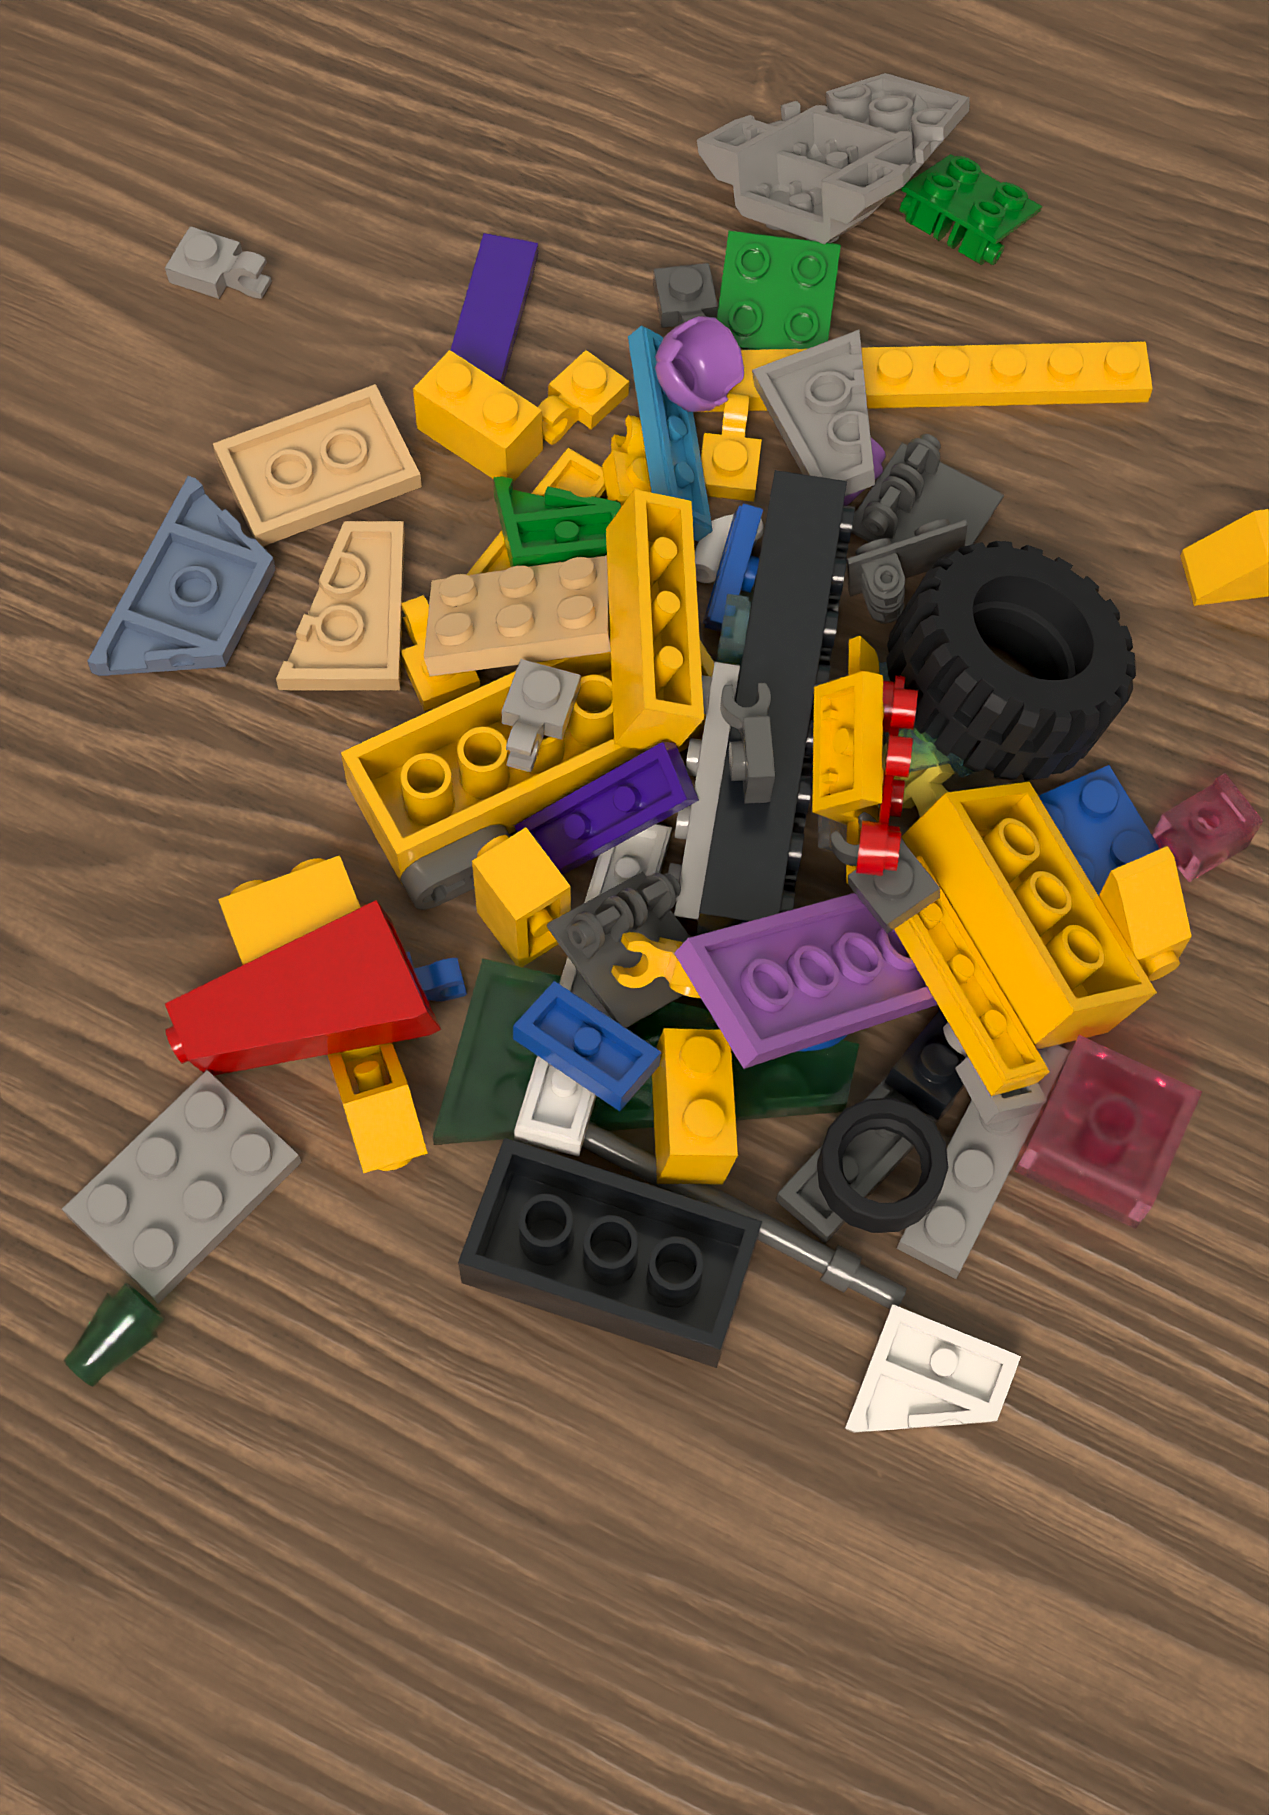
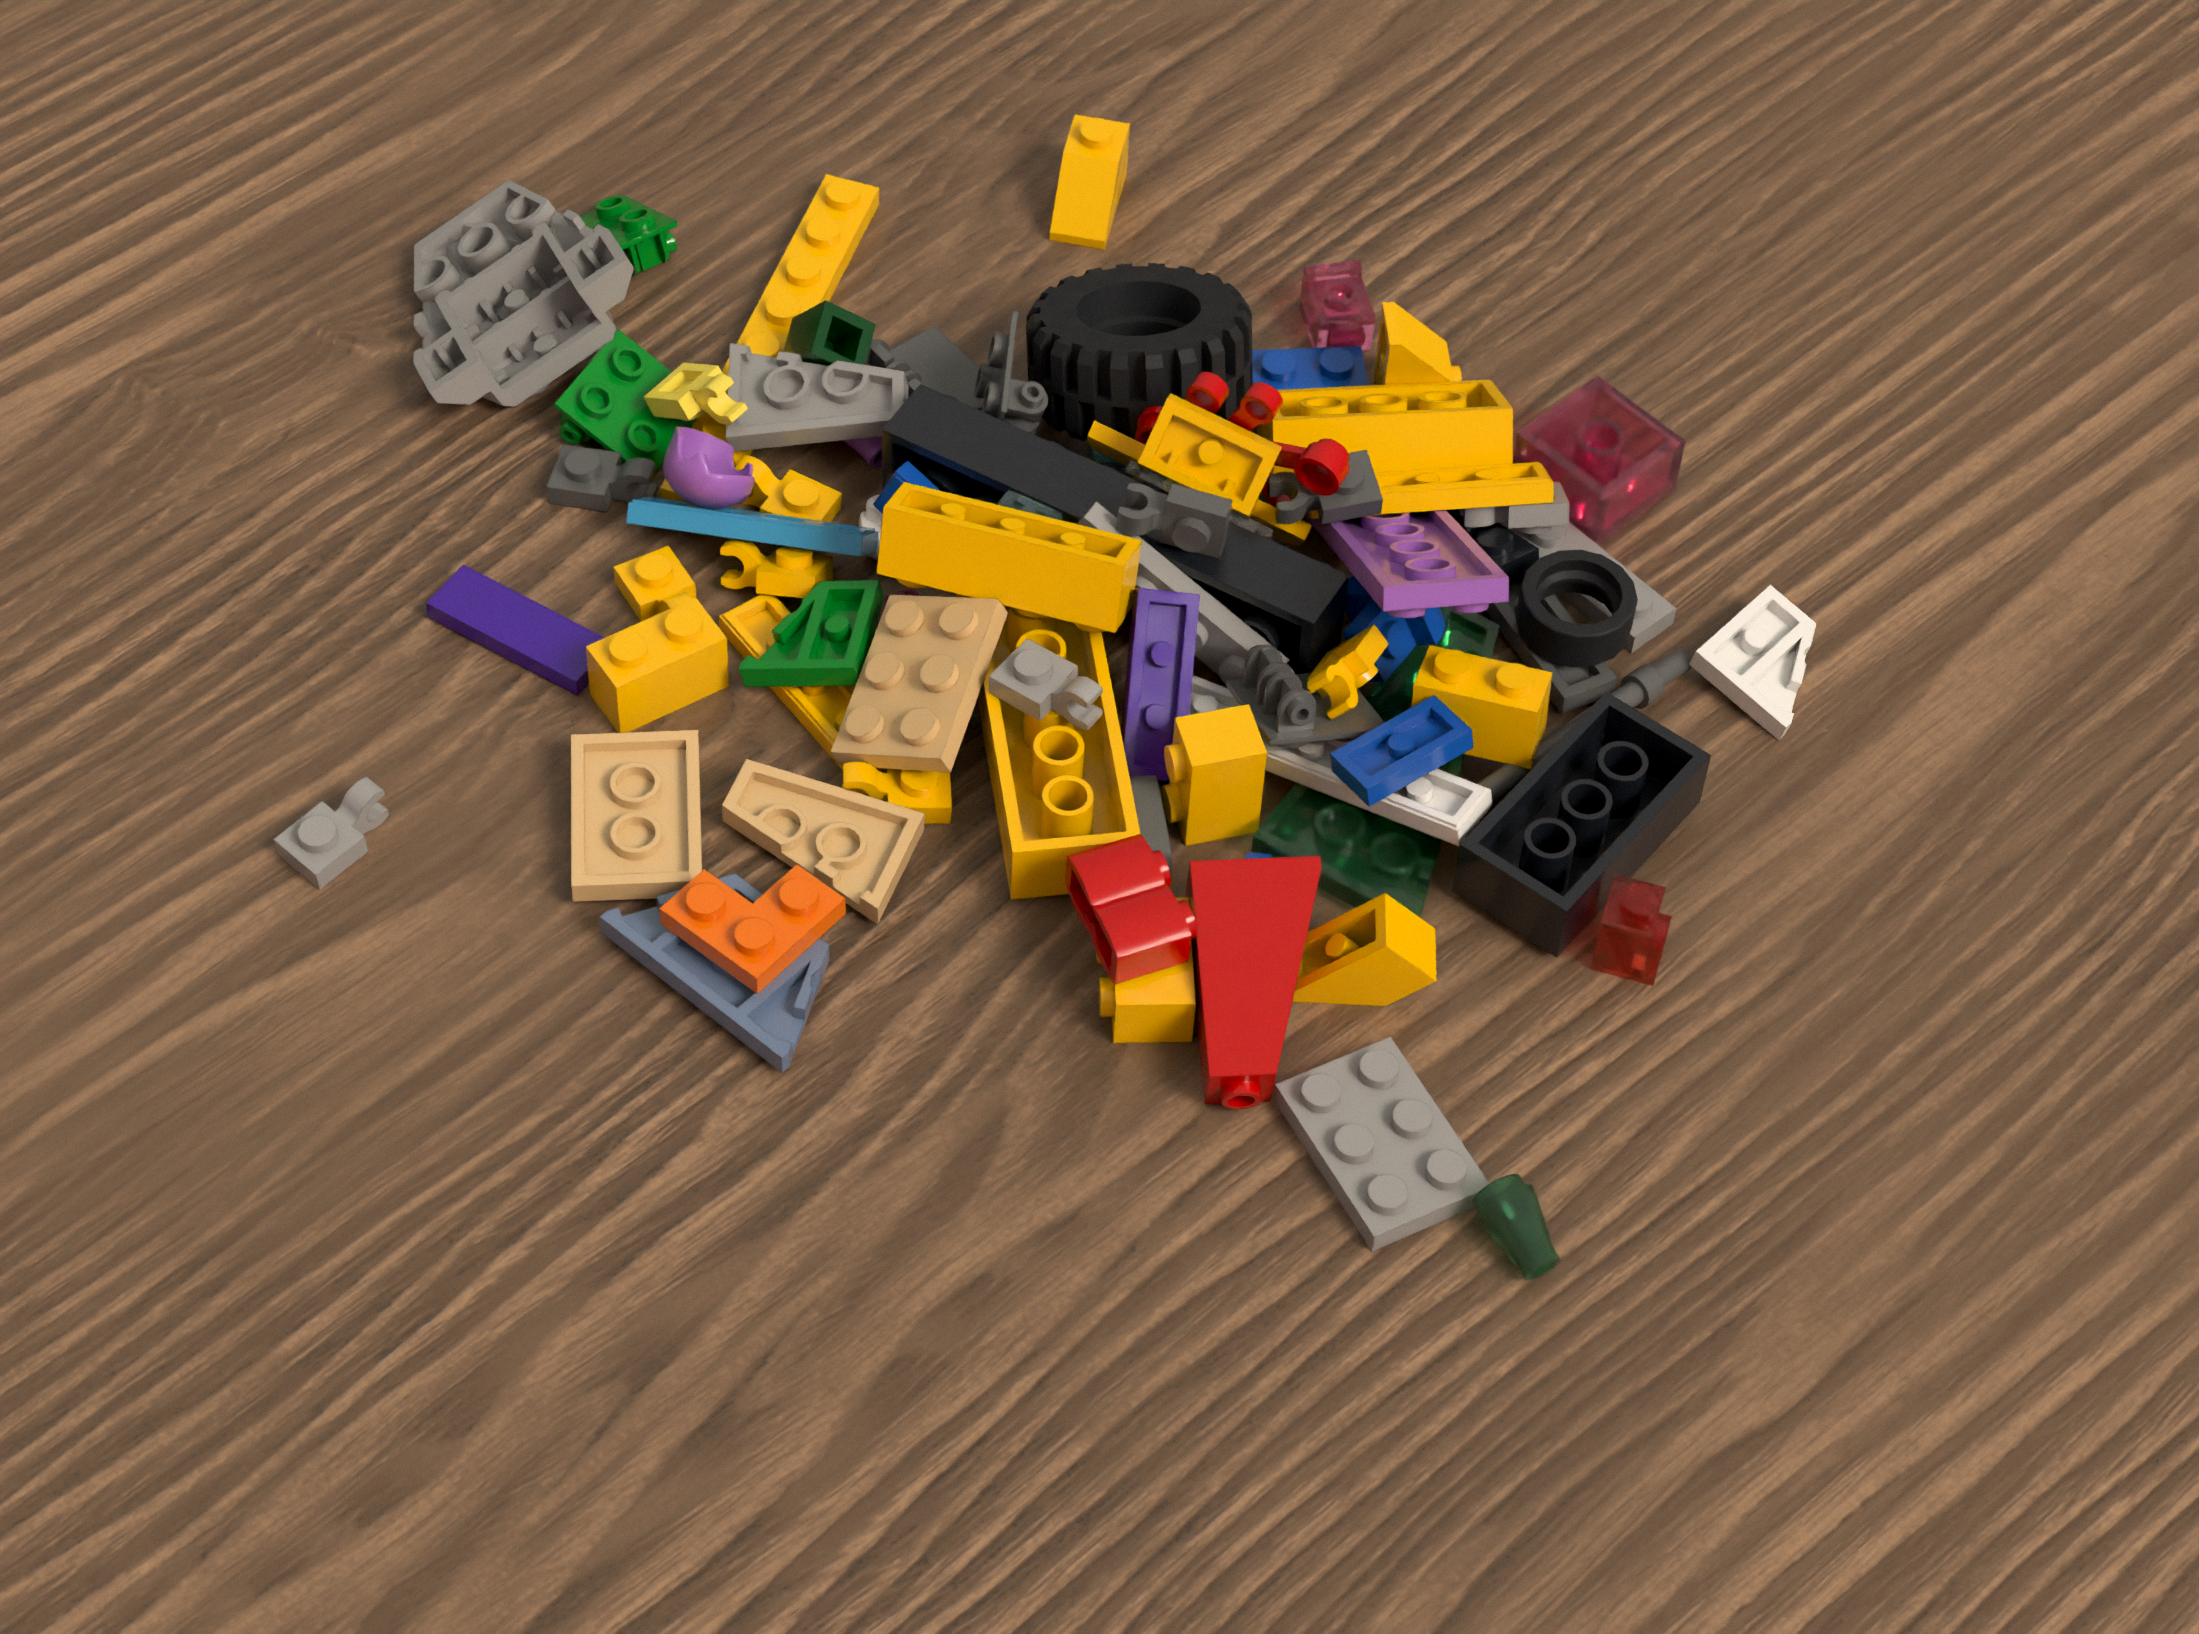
camera: 70 degrees left, 15 degrees down
(200, 588) = (754, 938): none -> orange plate
(307, 867) = (1129, 908): none -> red brick
(503, 1343) = (1632, 931): none -> clear red brick
(788, 326) = (693, 392): none -> light yellow plate
(904, 409) = (829, 335): none -> dark green brick

